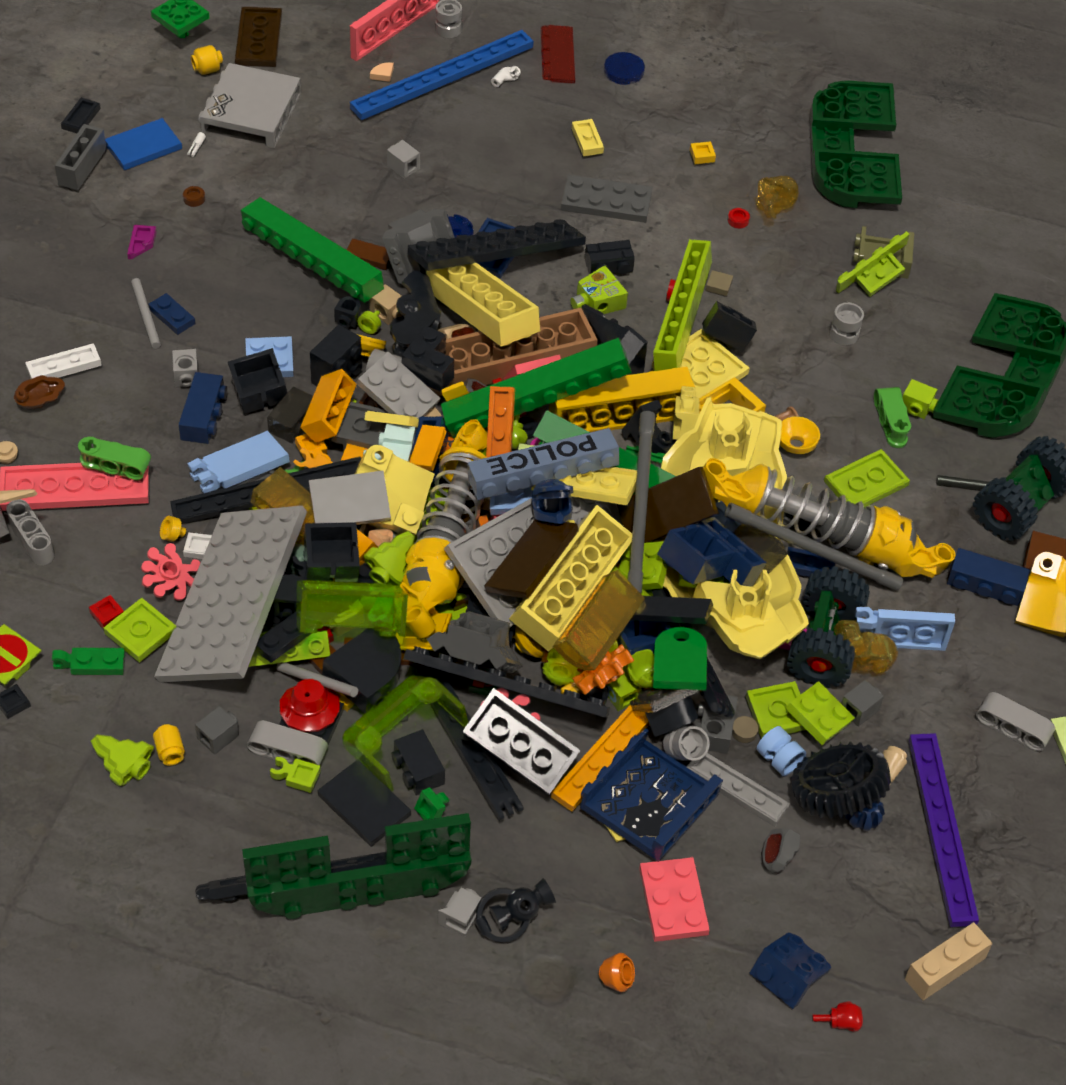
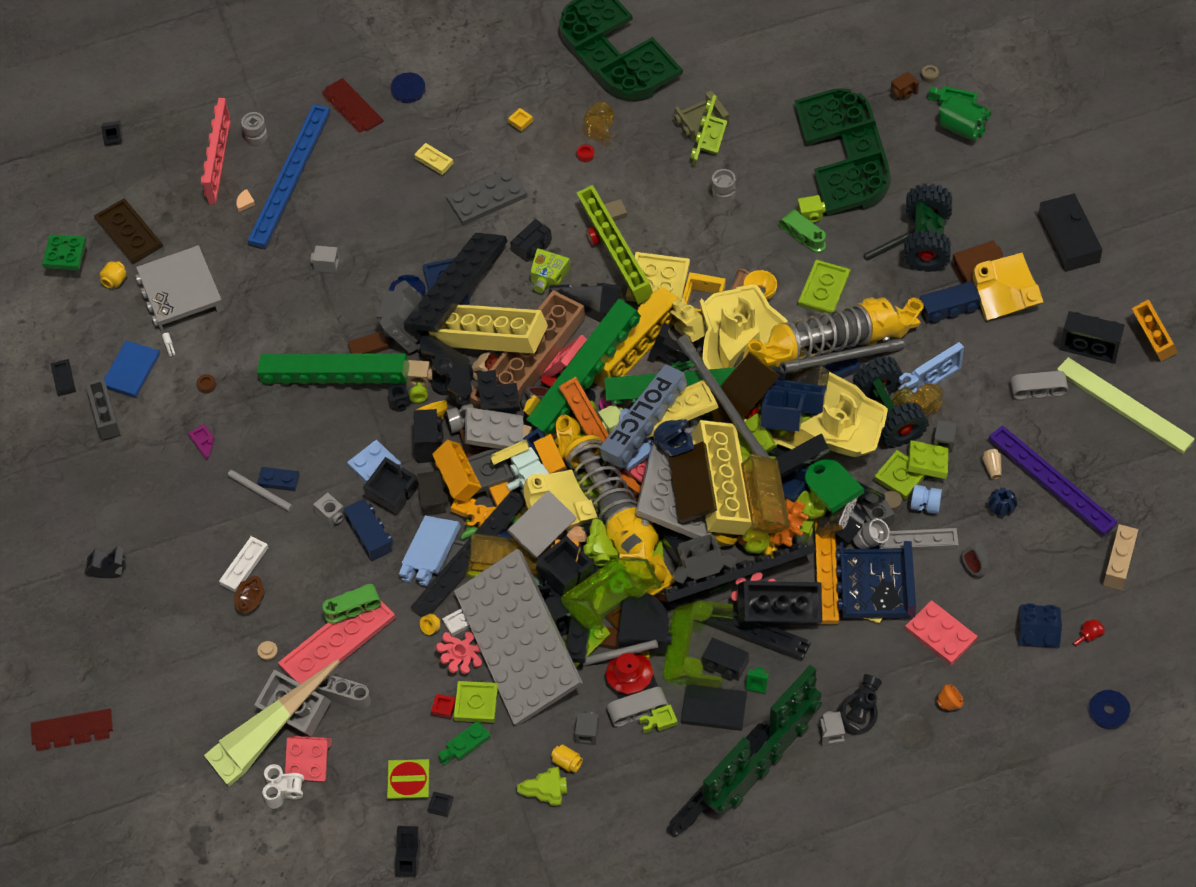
camera: 30 degrees left, 5 degrees up
(505, 74) = (332, 146): white arm -> none
(729, 327) = (655, 238): black brick -> none
(825, 794) = (987, 502): black gear -> none

